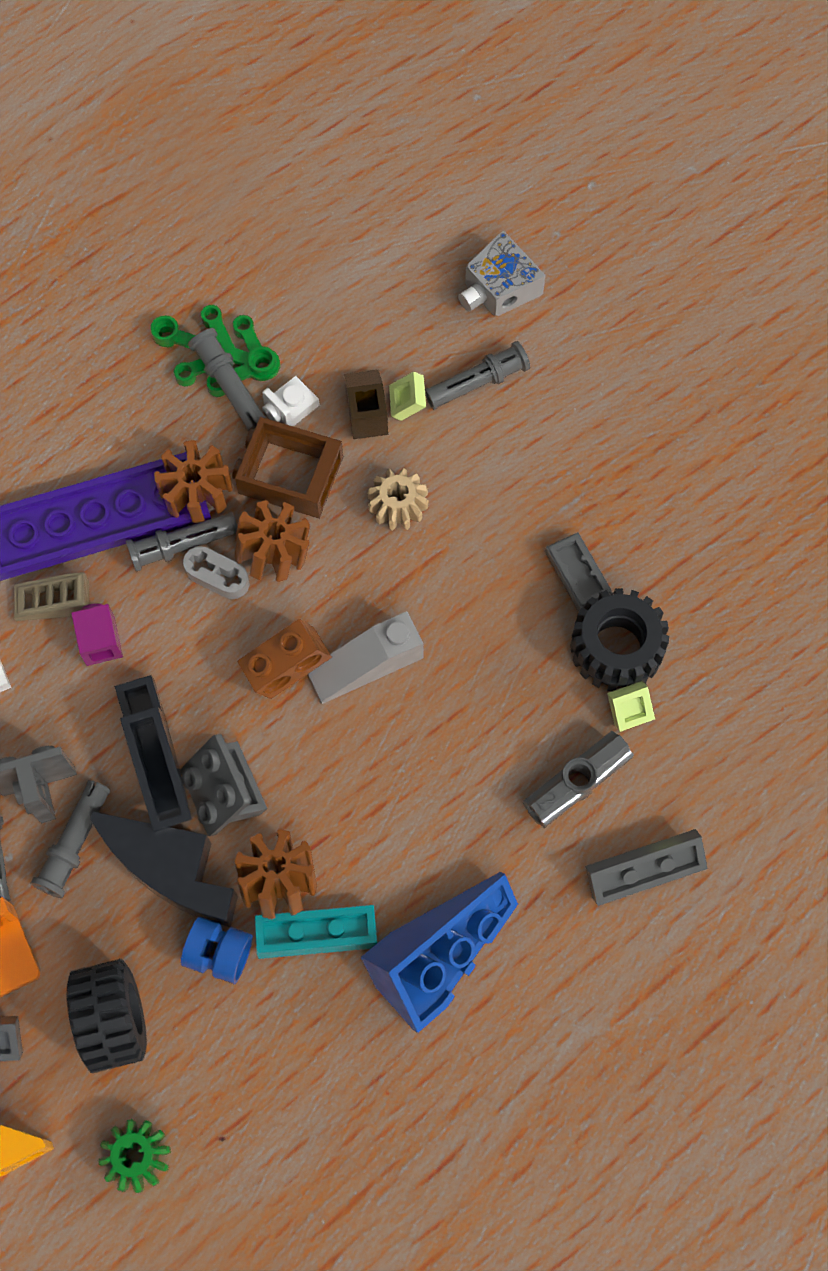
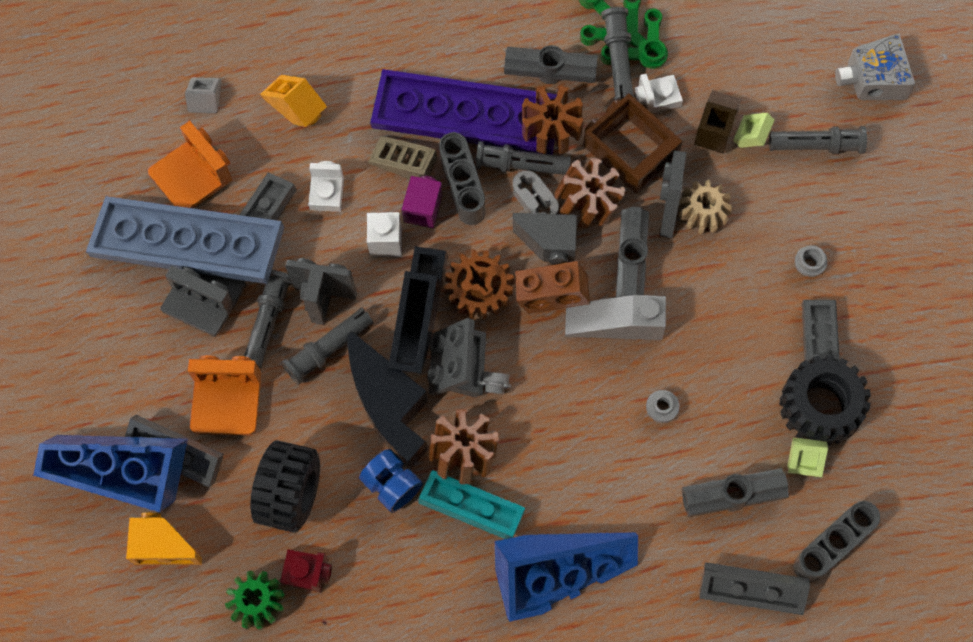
camera: 30 degrees right, 0 degrees up
(73, 689) = (384, 234): none -> white brick
(120, 574) = (462, 165): none -> dark grey beam
(141, 429) = (533, 64): none -> dark grey piece
(173, 1094) = (306, 570): none -> dark red bracket
(195, 707) = (484, 271): none -> dark orange gear
(251, 606) = (548, 235): none -> dark grey slope
(274, 788) = (495, 382): none -> light grey plate
(342, 568) = (632, 240): none -> dark grey piece
(357, 499) = (671, 192): none -> dark grey wing
(460, 738) = (657, 414): none -> light grey plate
(535, 495) = (814, 253): none -> light grey plate
(714, 764) = (847, 530): none -> dark grey beam

